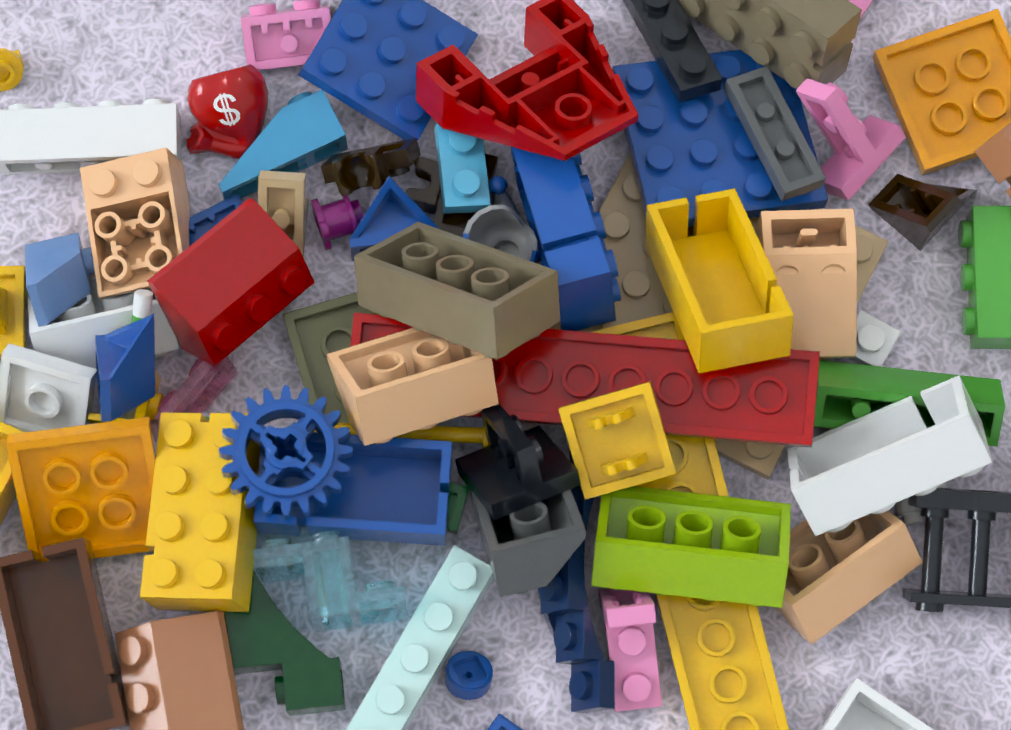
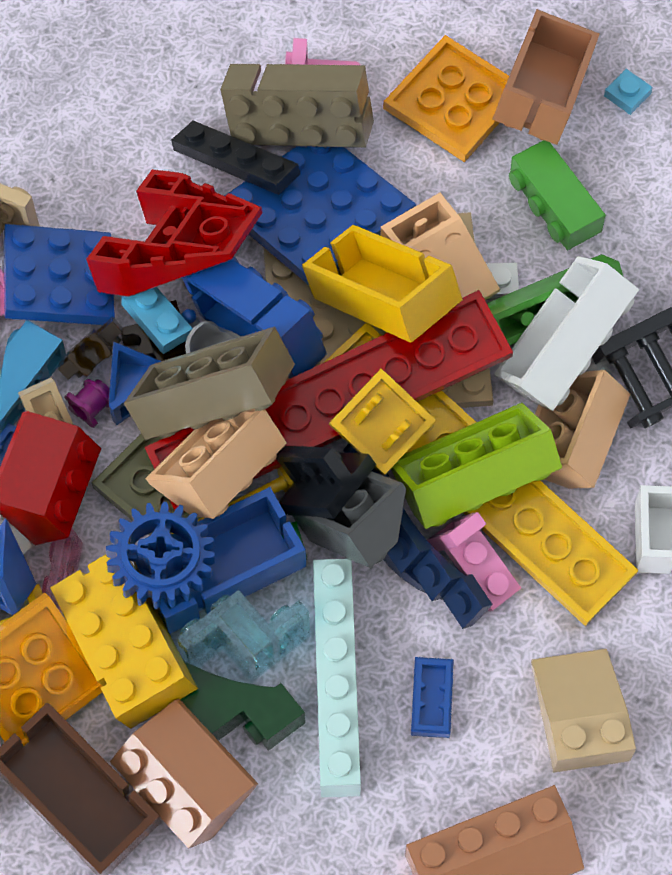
camera: 30 degrees left, 10 degrees down
(468, 675) = (377, 646): blue tile -> none
(774, 133) = (355, 179): dark grey plate -> none
(857, 144) = (410, 161): bright pink bracket -> none
(918, 208) = (475, 182): dark brown slope -> none

